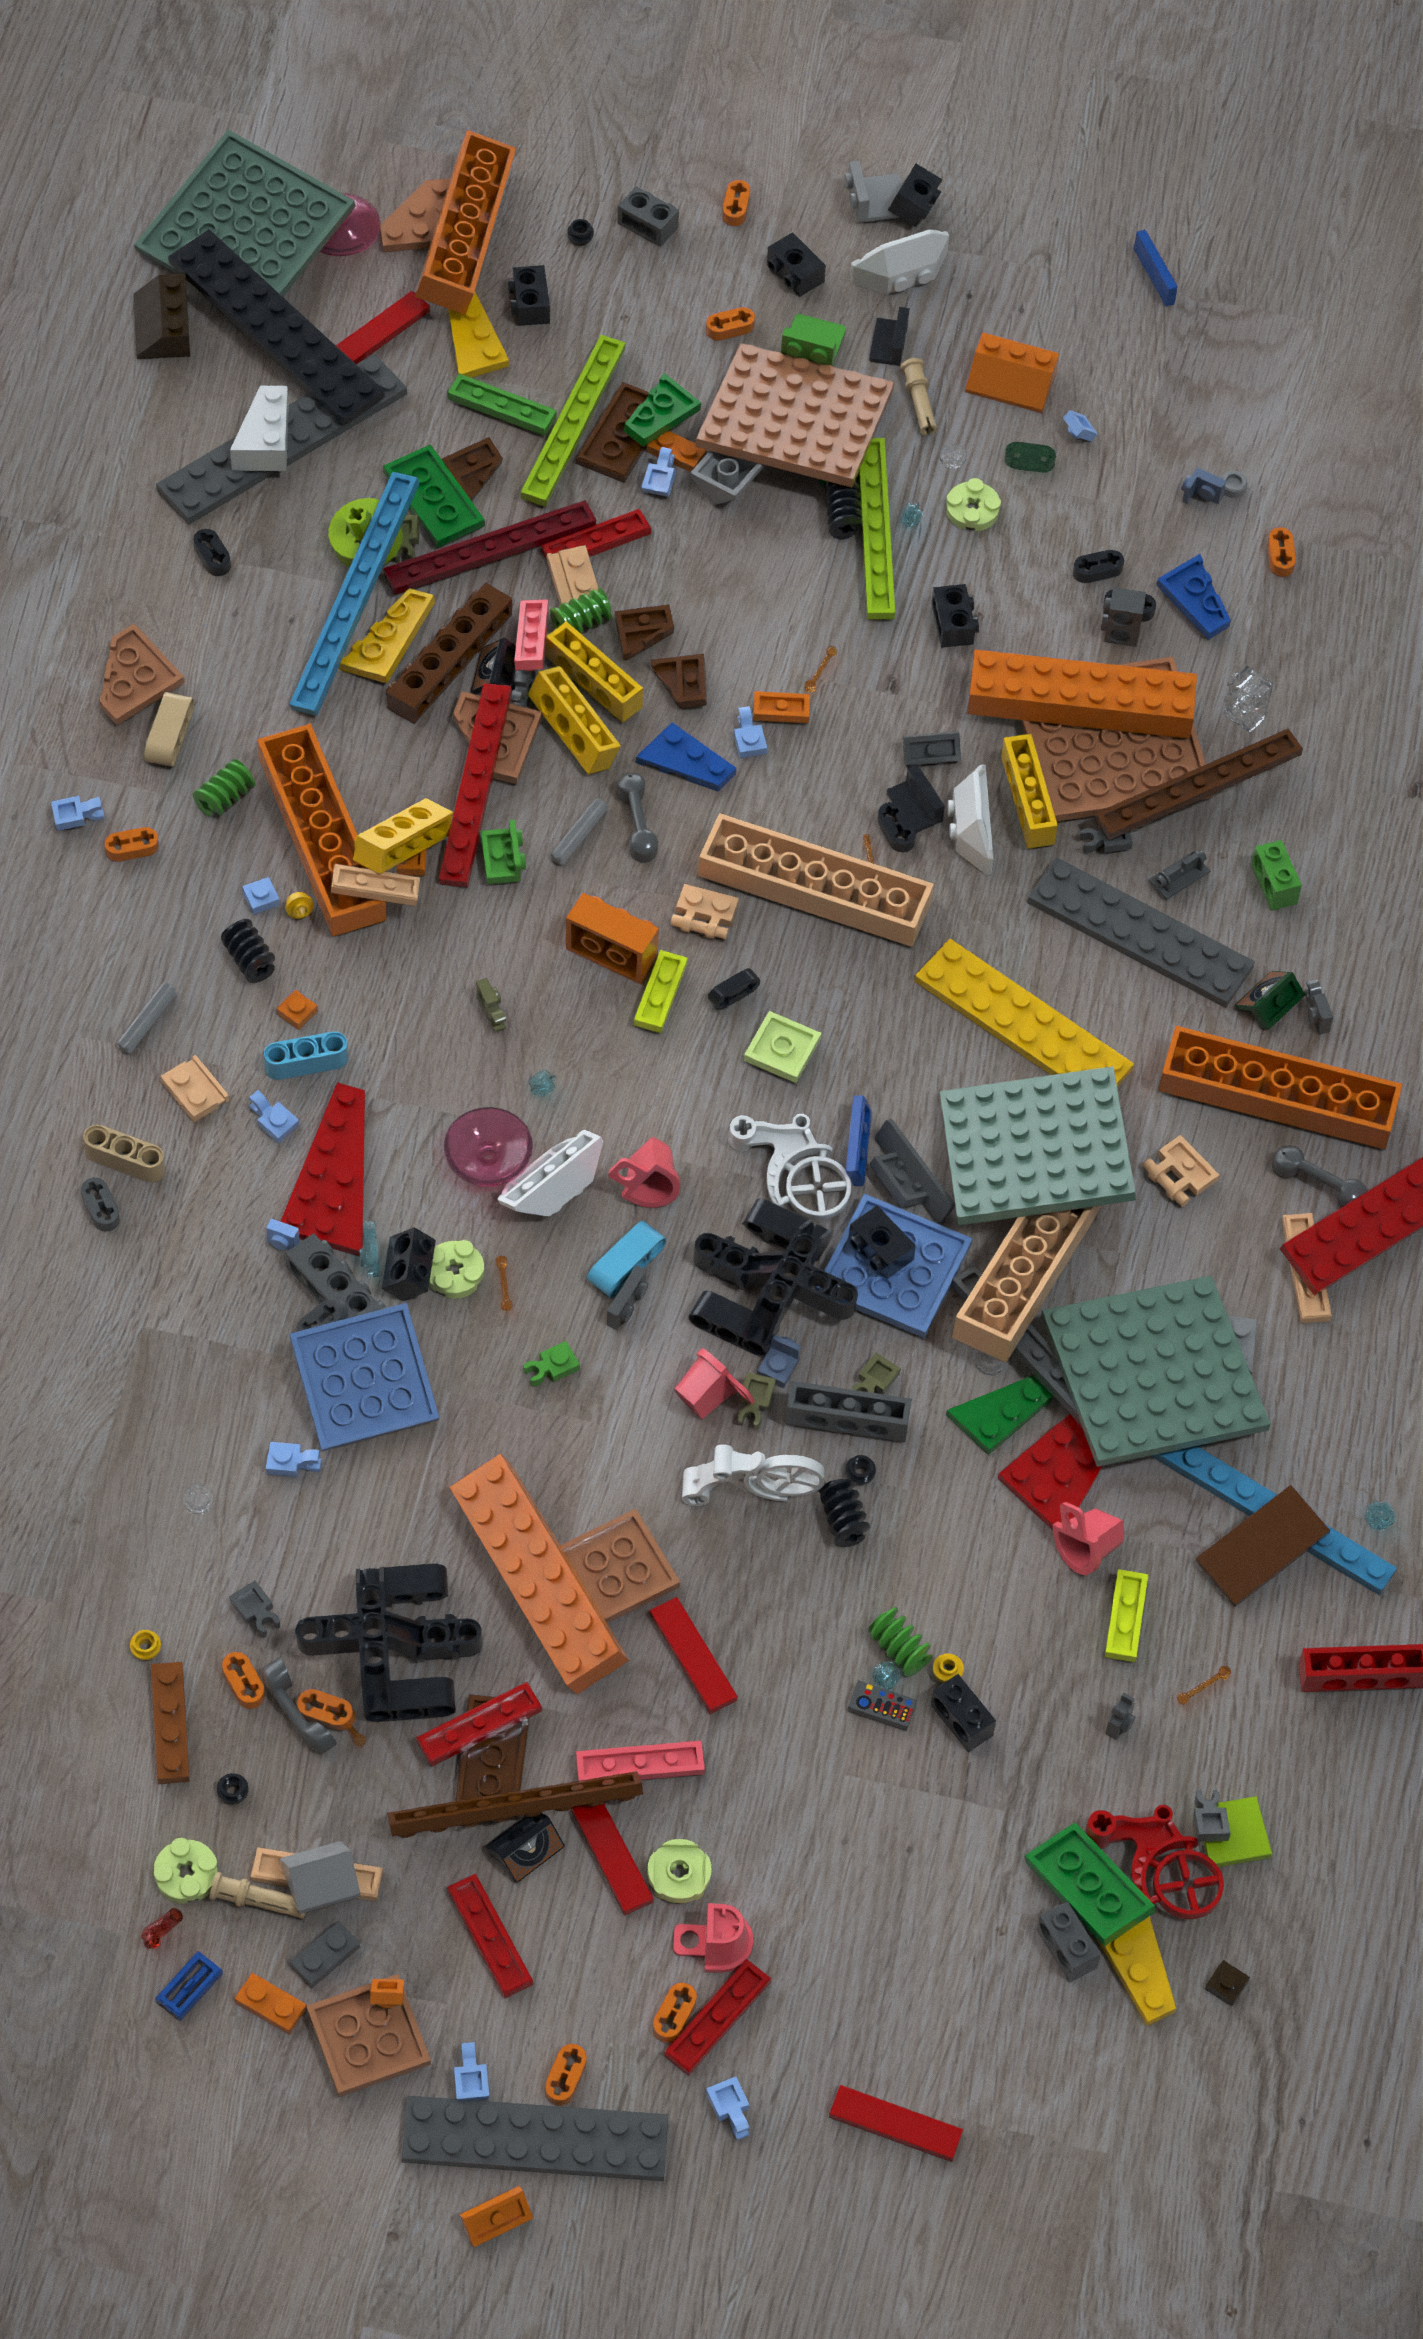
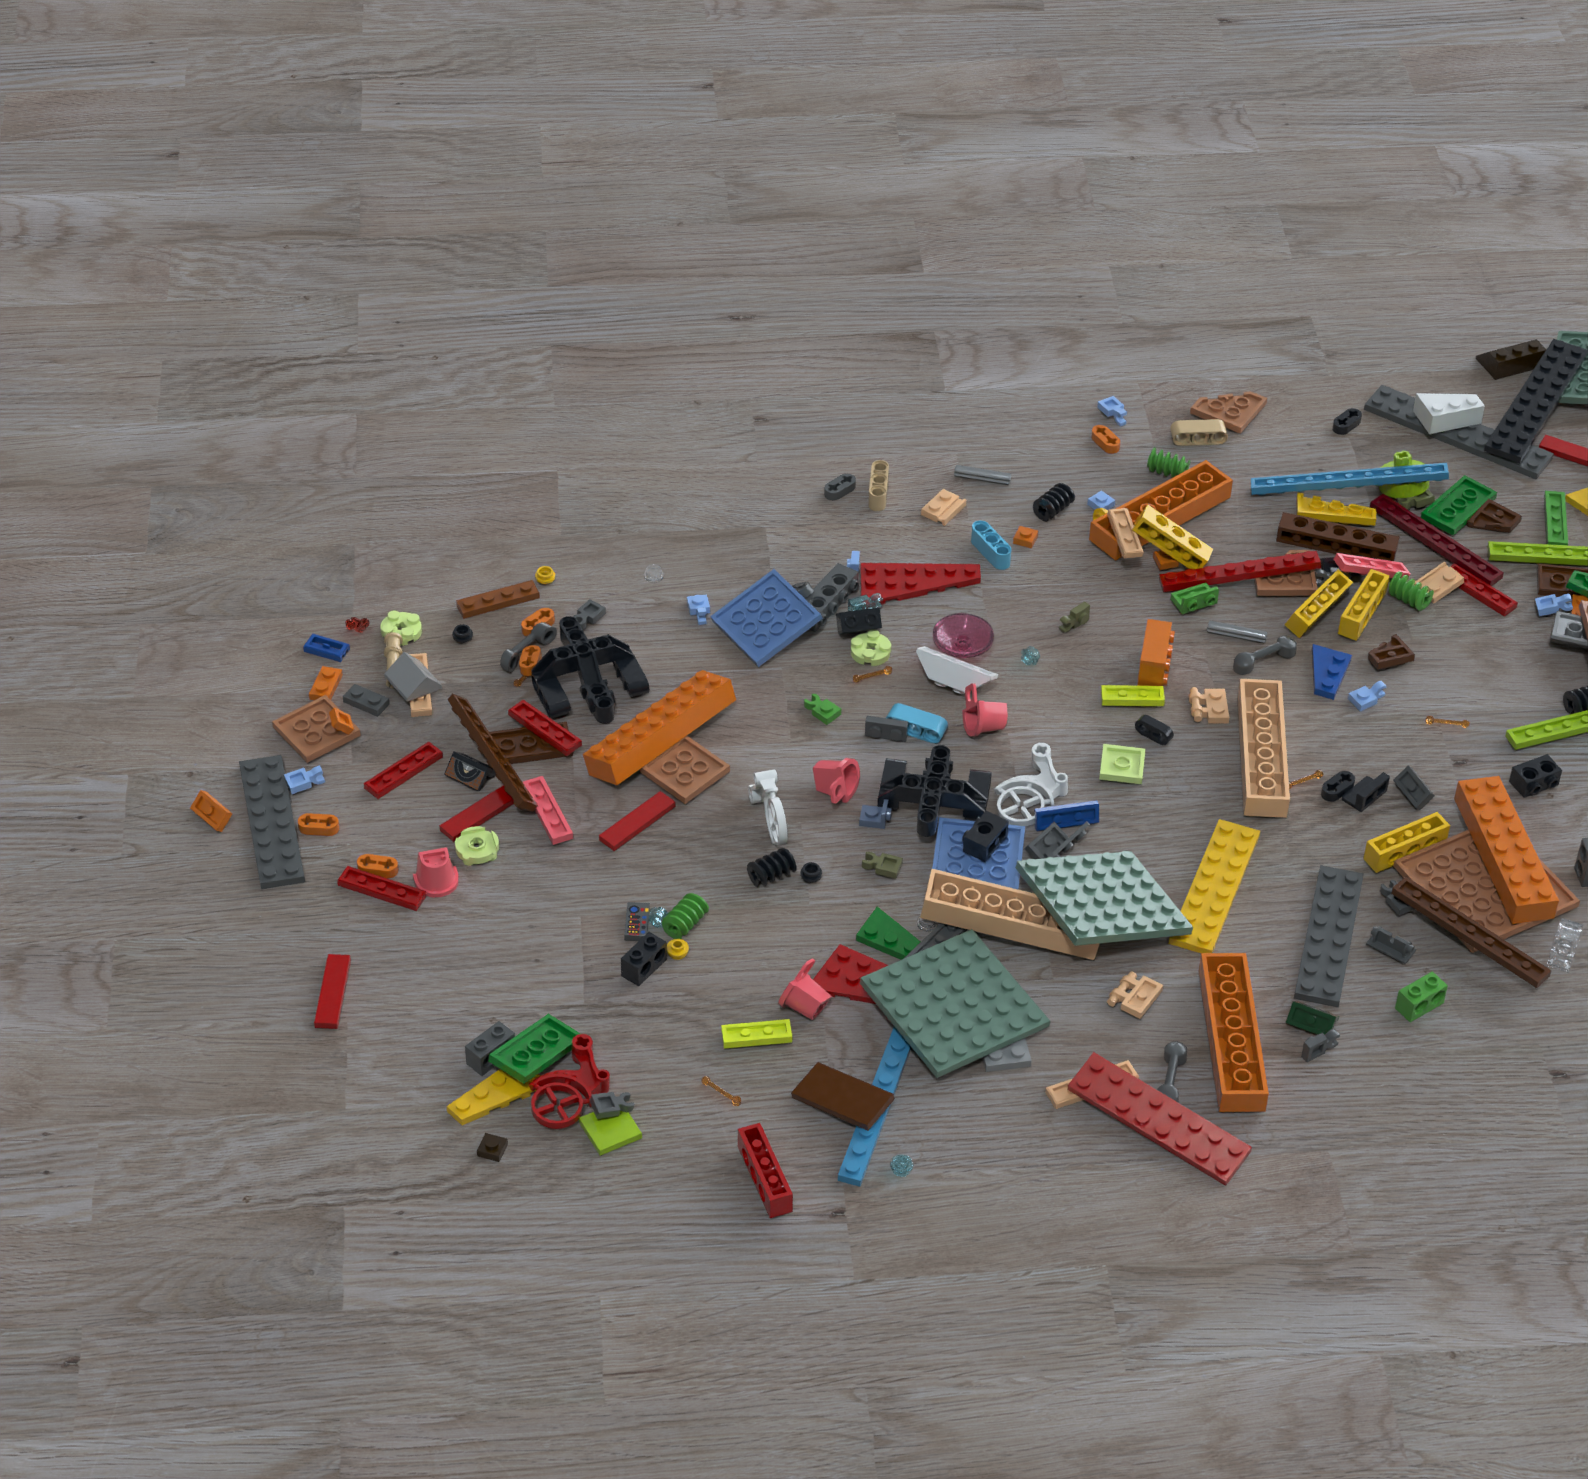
camera: 75 degrees right, 15 degrees down
(274, 1120) = (939, 546): light blue plate -> none
(642, 628) = (1418, 624): reddish brown wing -> none
(729, 2102) = (320, 903): light blue plate -> none
(762, 1392) = (844, 808): olive plate -> none
(781, 707) = (1399, 705): orange plate -> none
(848, 1411) = (848, 851): dark grey brick -> none
(972, 820) = (1370, 819): white wedge -> none
(1122, 1717) = (672, 1042): dark grey plate -> none

